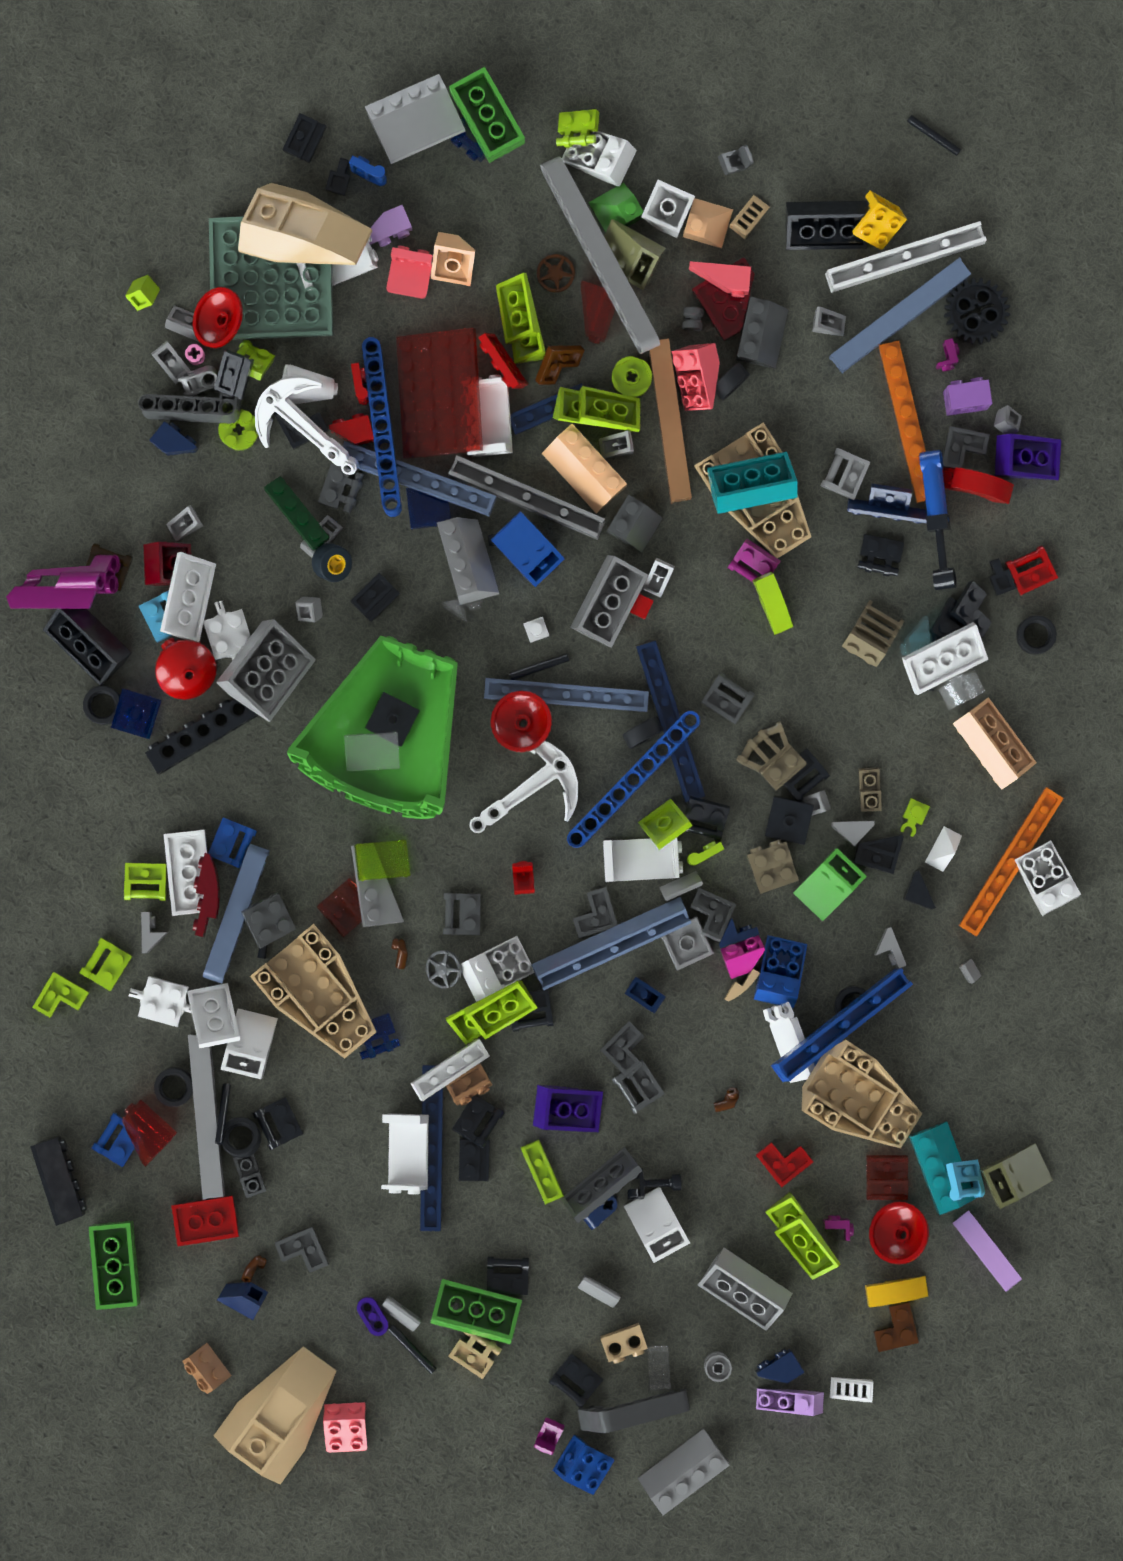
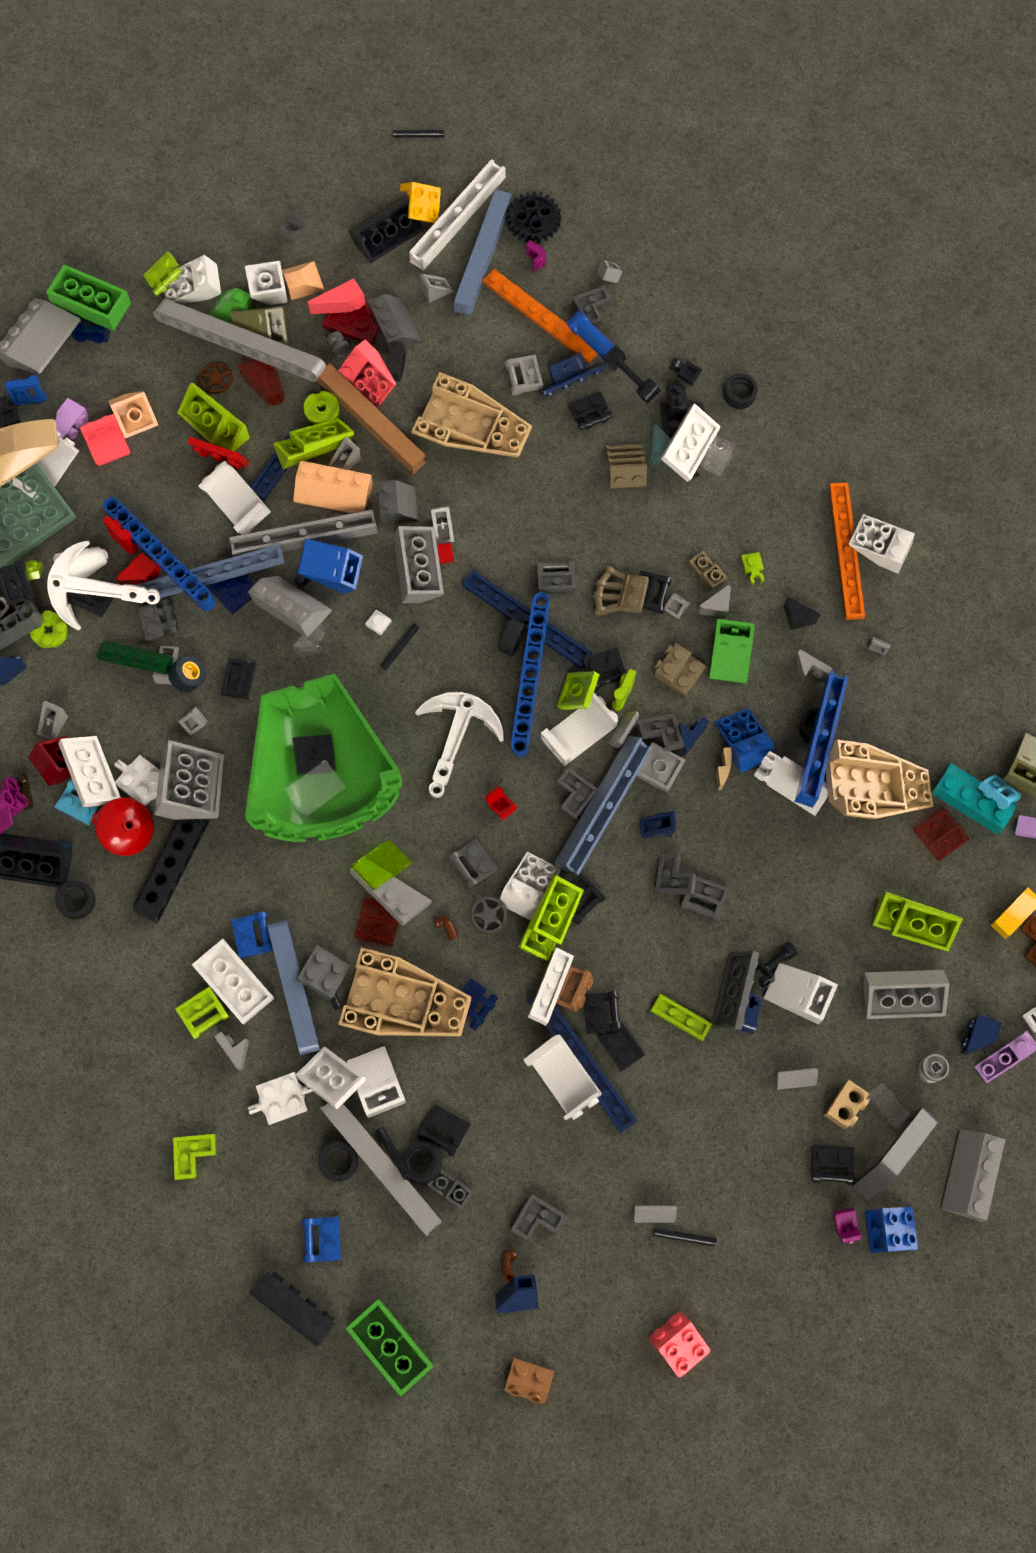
camera: 30 degrees left, 15 degrees down
(111, 968) = (220, 1102): lime plate -> none
(136, 713) = (106, 886): clear blue plate -> none
(147, 1131) = (340, 1212): clear red slope -> none
(205, 1220) = (440, 1254): red plate -> none
(207, 885) = (254, 979): dark red slope -> none
(278, 1416) = (617, 1376): tan wedge -> none
(373, 1315) = (633, 1232): dark purple plate -> none
(439, 393) = (186, 505): clear red plate -> none
(468, 1300) = (717, 1151): bright green brick -> none
(473, 1359) = (737, 1208): tan plate -> none
(508, 1282) = (721, 1124): black plate -> none
(509, 714) = (411, 678): red dish -> none
(555, 359) = (257, 427): reddish brown plate -> none
(567, 1109) = (663, 953): dark purple slope -> none
(571, 694) = (434, 652): sand blue plate -> none
(729, 1101) = (781, 861): reddish brown arm -> none
(741, 230) = (328, 269): tan slope -> none
(742, 956) = (708, 746): dark pink slope -> none
(752, 482) = (463, 412): teal slope -> none
(755, 558) = (504, 466): magenta plate -> none
(773, 603) = (539, 487): lime slope -> none
(783, 1168) = (860, 881): red plate -> none
(789, 820) = (666, 628): black plate -> none
(835, 1222) = (941, 889): magenta bracket -> none
(879, 853) = (751, 607): black wing -> none
(887, 1230) = (972, 861): red dish -> none
(943, 849) = (792, 575): white slope -> none
(967, 397) = (570, 269): medium lavender brick -> none
(978, 483) = (623, 316): red arch -> none
(994, 743) = (770, 480): light nougat slope -> none
(1027, 457) = (640, 284): dark purple slope -> none
(1035, 576) = (707, 356): red plate -> none

